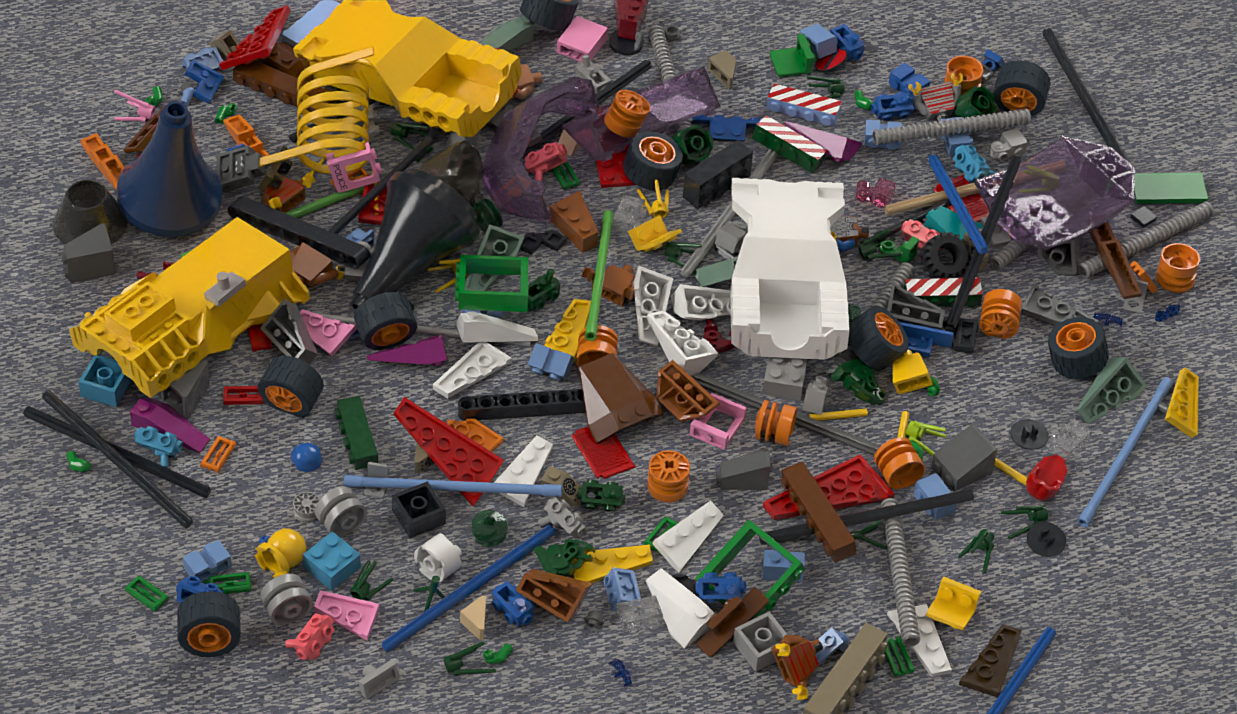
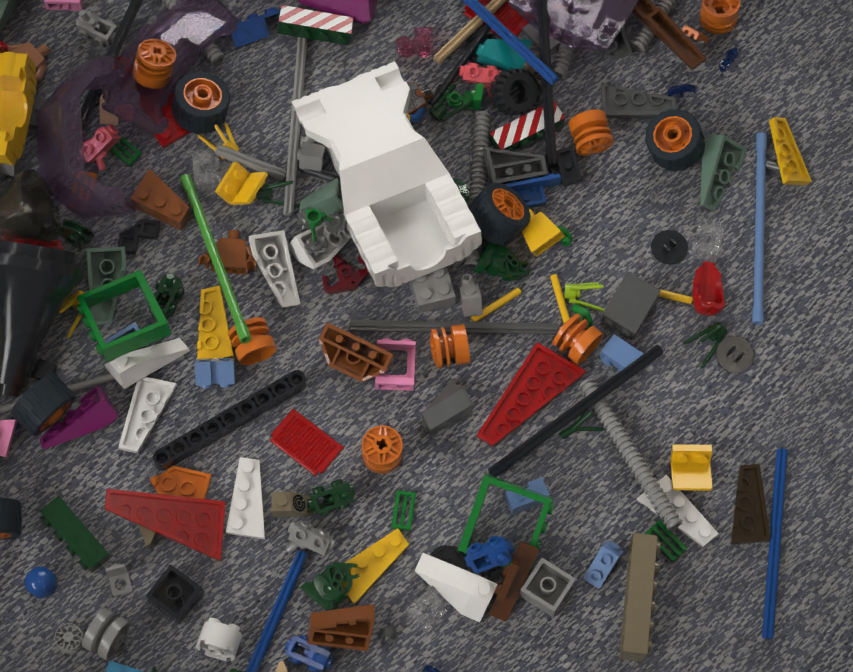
camera: 25 degrees left, 20 degrees up
(489, 528) = (251, 589): clear green piece -> none
(545, 490) = (105, 585): medium blue piece -> none
(614, 397) = (295, 388): reddish brown wedge -> none
(621, 586) = (397, 588): medium blue bracket -> none
(671, 220) = (250, 162): none -> light grey axle
(681, 344) = (324, 298): white wedge -> none
(685, 538) = (427, 502): white wing -> none
(694, 143) = (229, 66): dark green brick -> none
(700, 276) = (312, 218): none -> dark grey plant
(715, 174) = (267, 90): black brick -> none
(797, 661) = (587, 596): torso -> none
(818, 512) = (535, 429): reddish brown brick -> none
(982, 542) = (684, 384): dark green plant -> none

